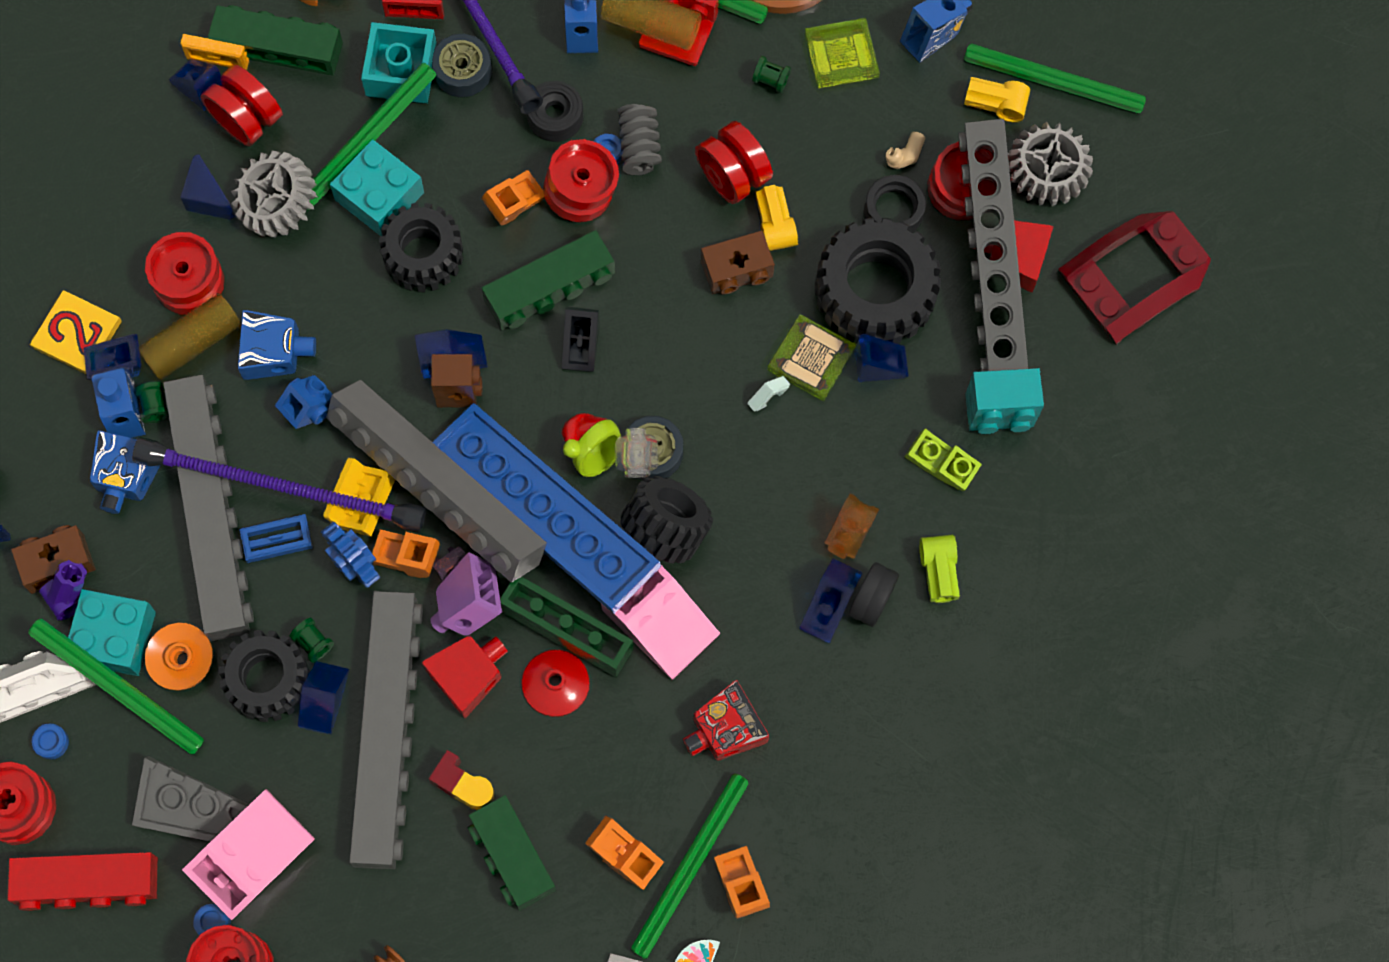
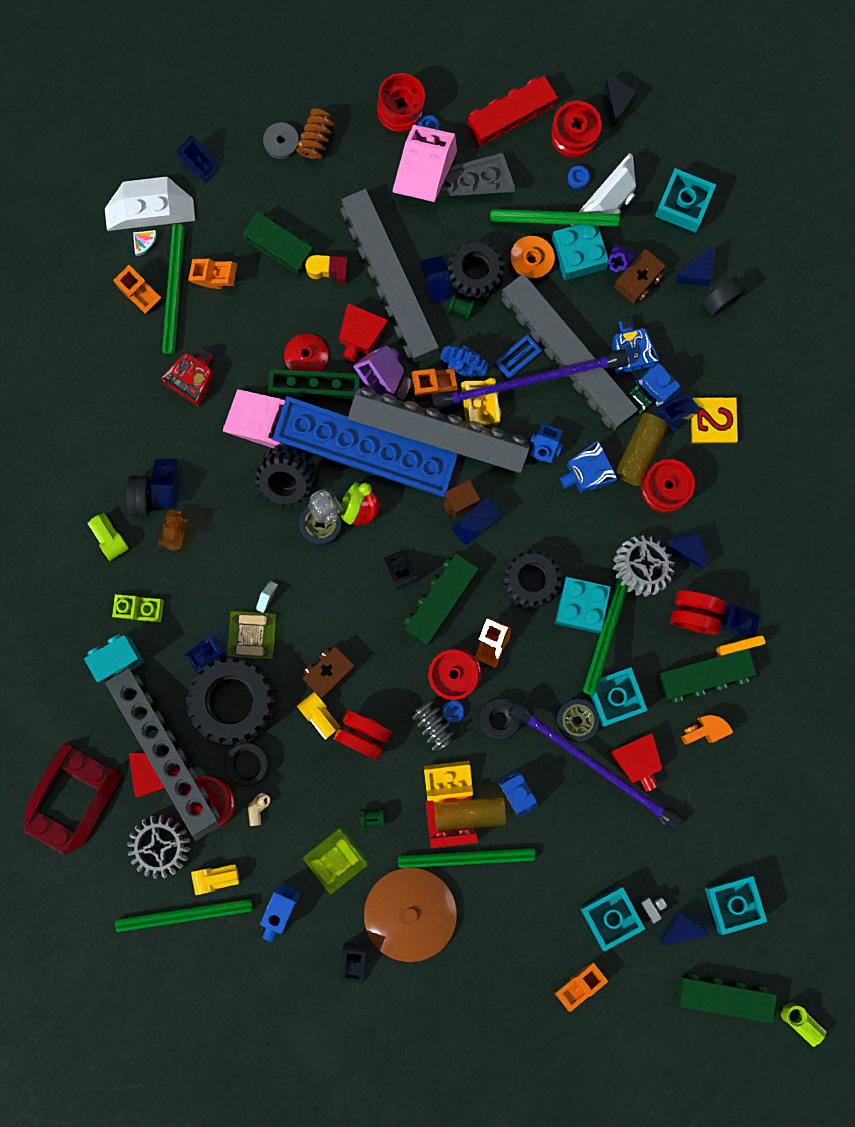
camera: 155 degrees right, 10 degrees up
(657, 69) = (448, 781): none -> yellow bracket

